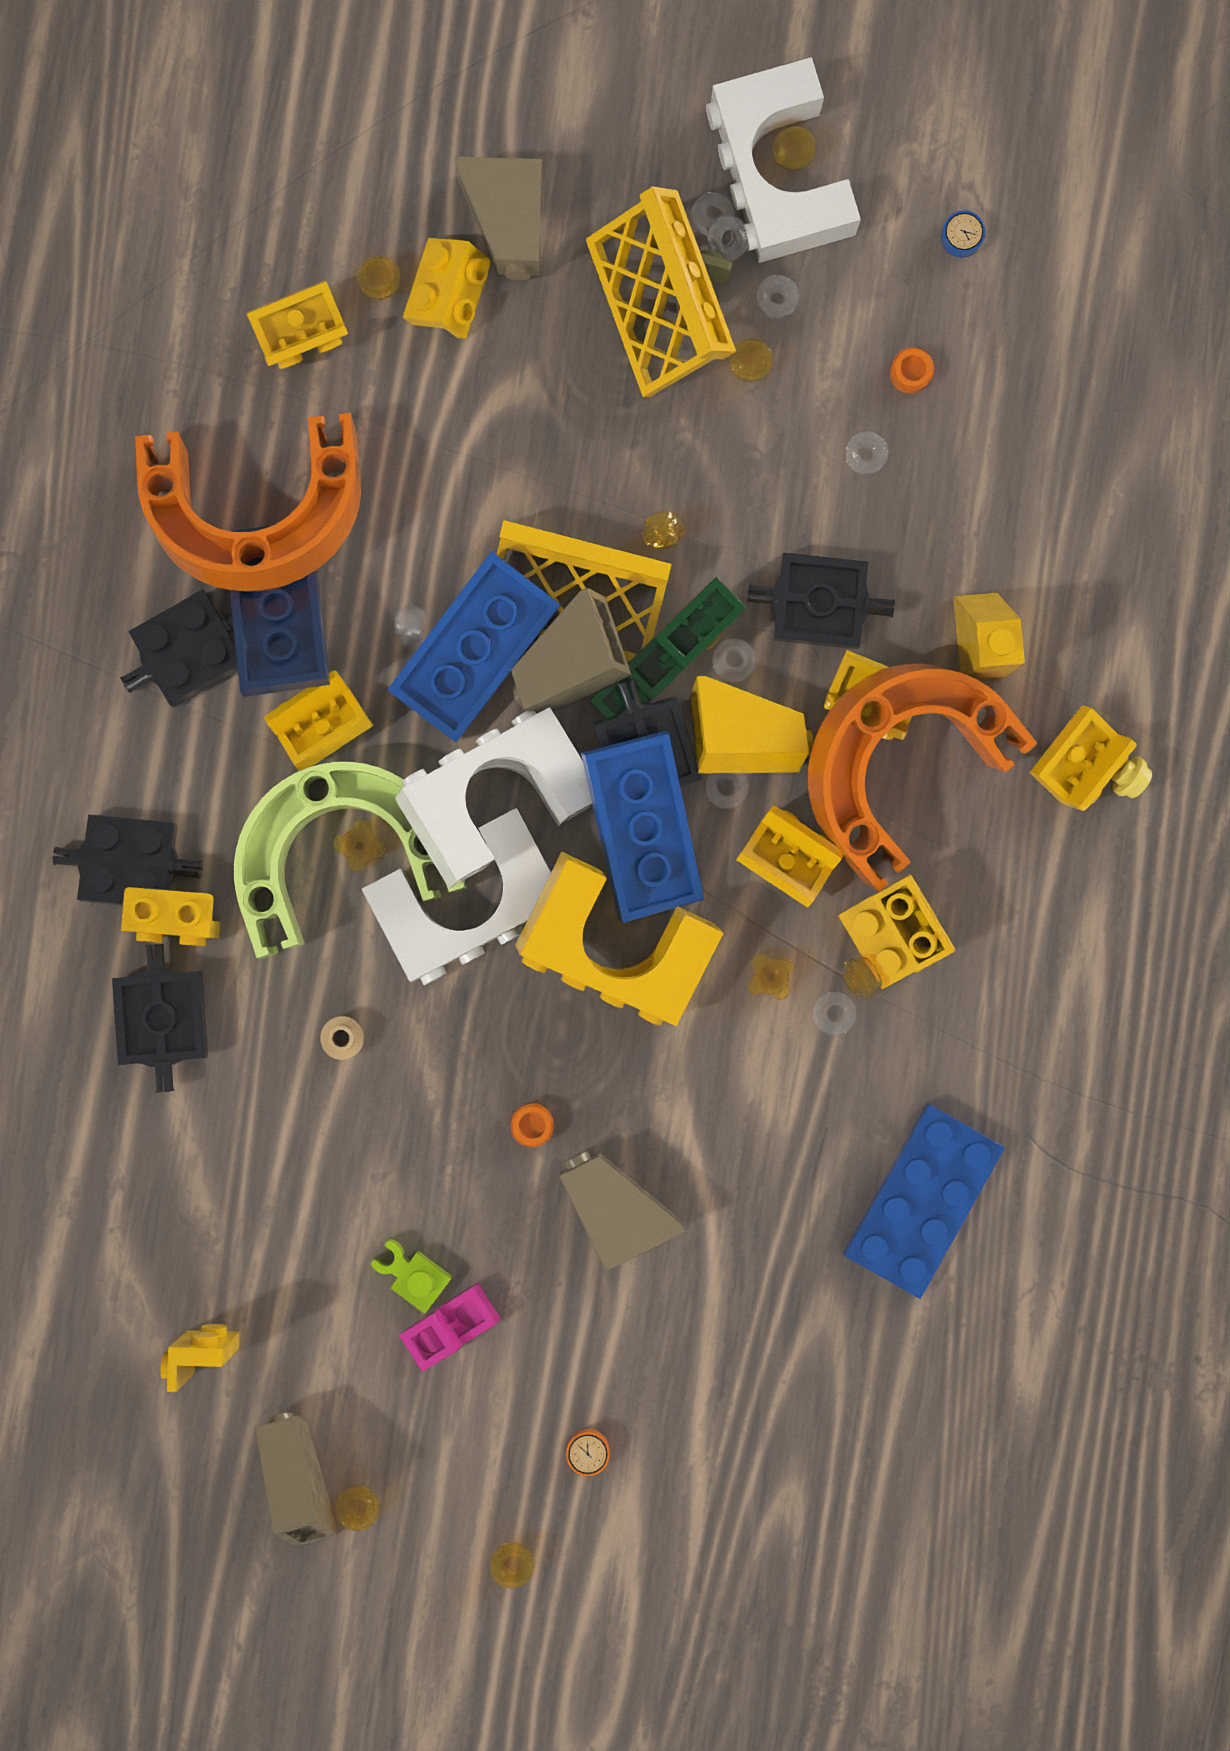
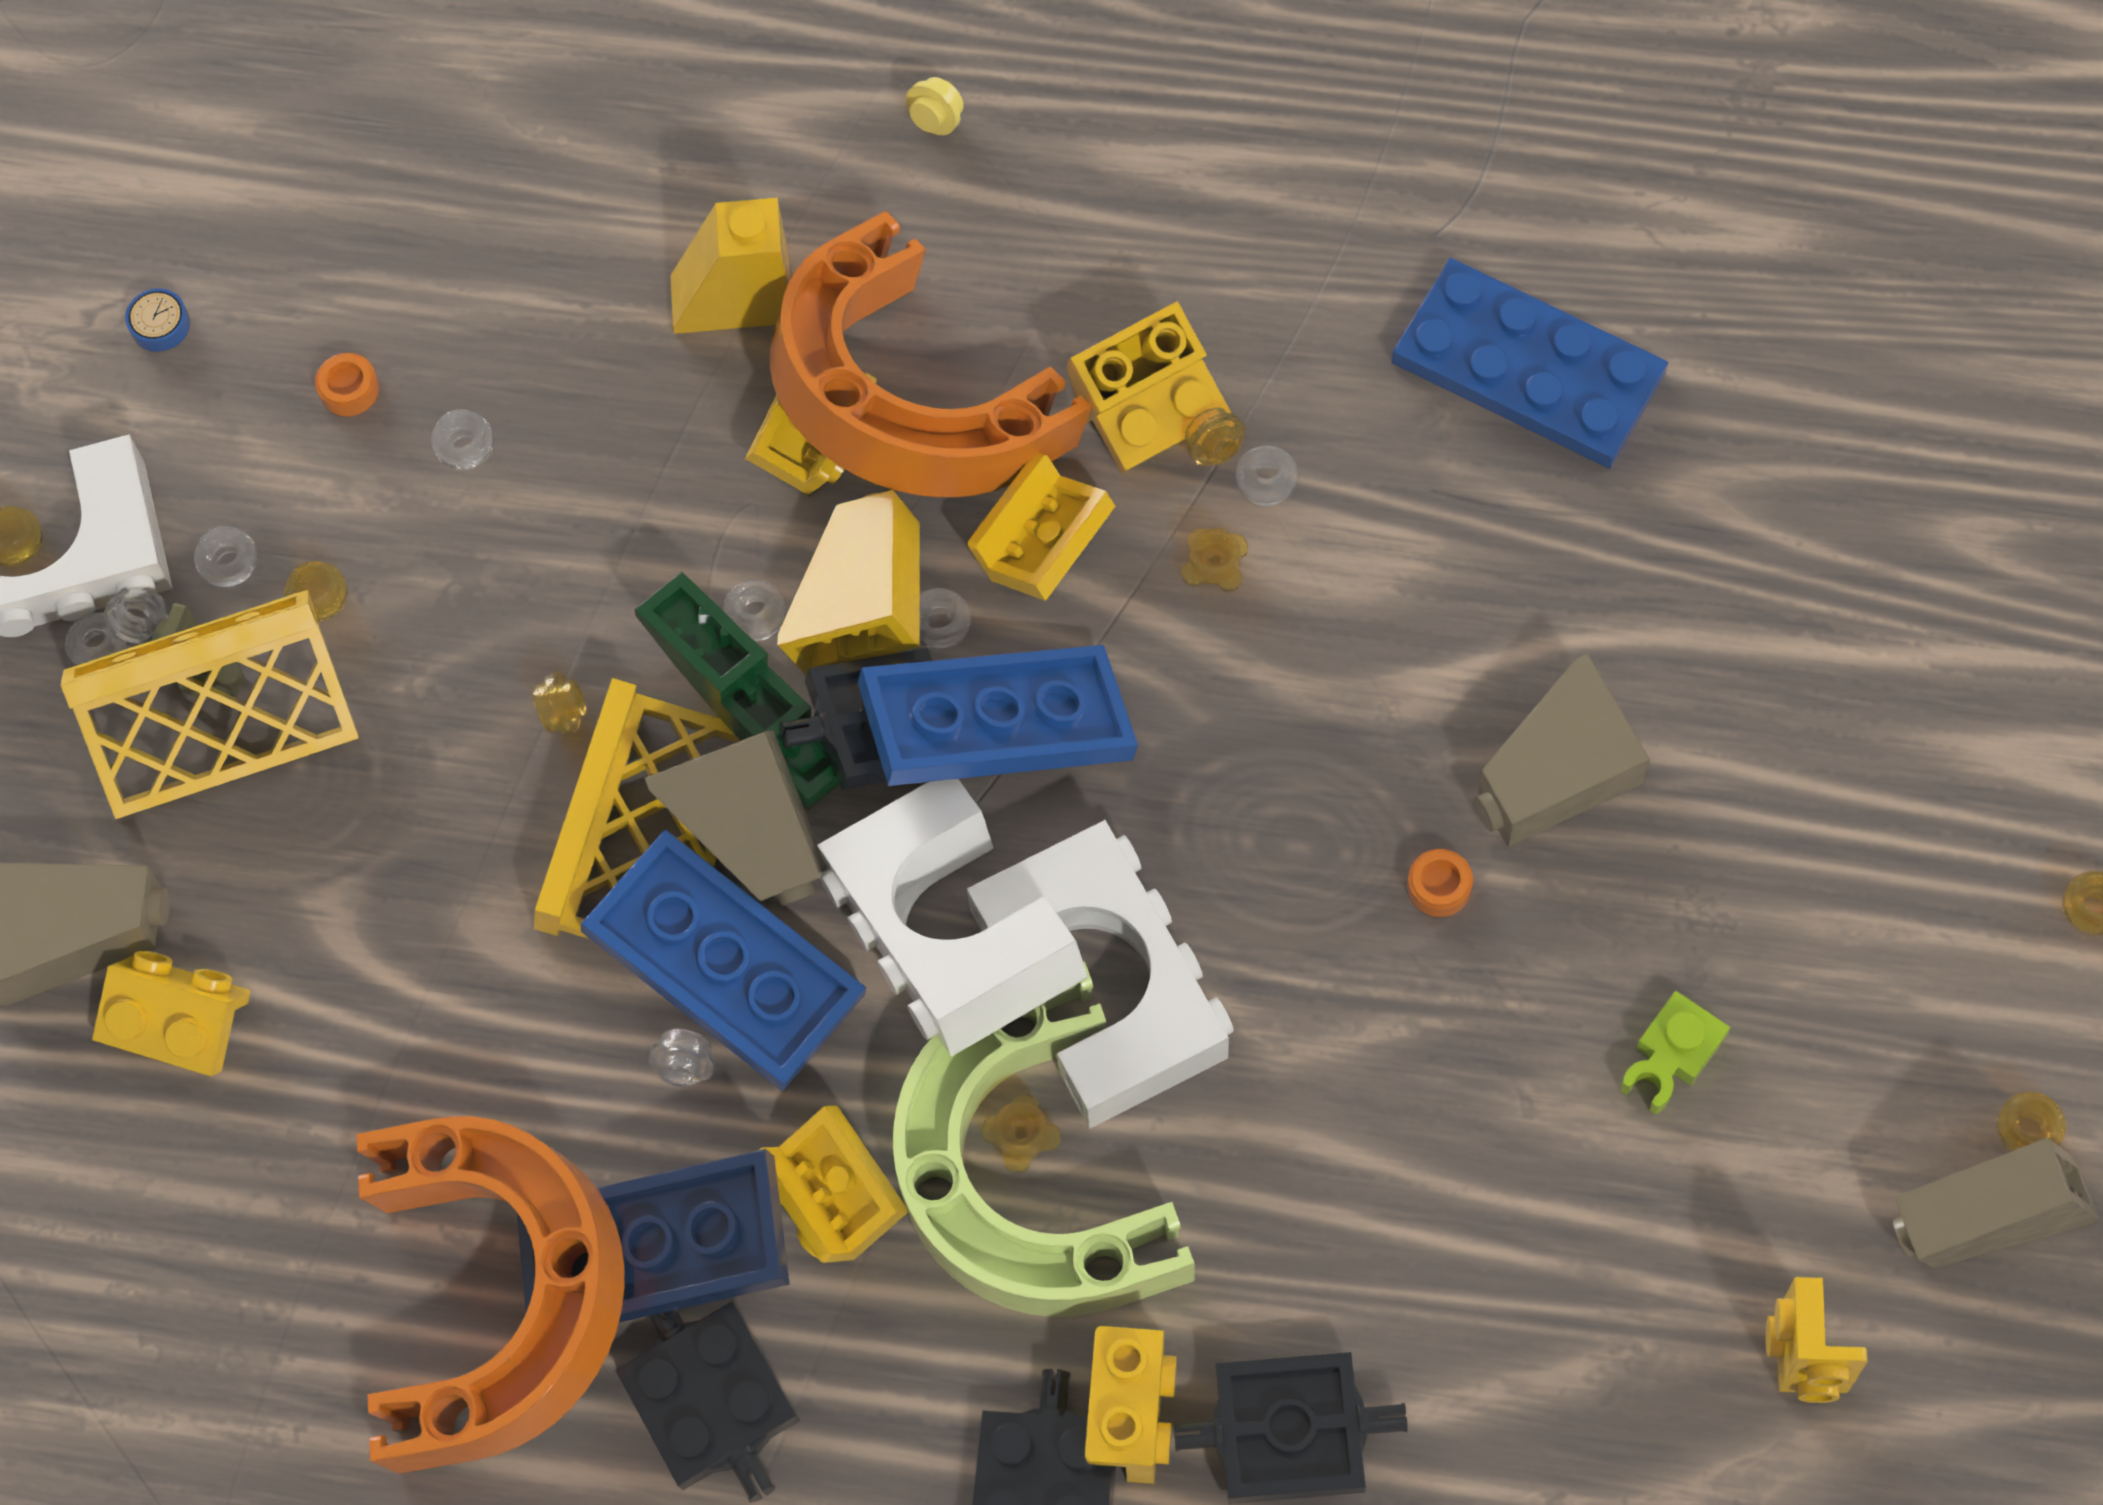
camera: 80 degrees left, 20 degrees down
(297, 325) = (212, 1226): yellow bracket -> none
(356, 1038) = (1316, 1172): tan plate -> none
(378, 277) = (146, 1113): clear yellow plate -> none
(449, 1327) = (1747, 996): dark pink slope -> none
(588, 1452) = (1920, 800): tile -> none
(656, 986) = (1160, 820): yellow arch -> none
(820, 601) = (673, 494): black plate -> none
(1082, 759) = (910, 161): yellow bracket -> none

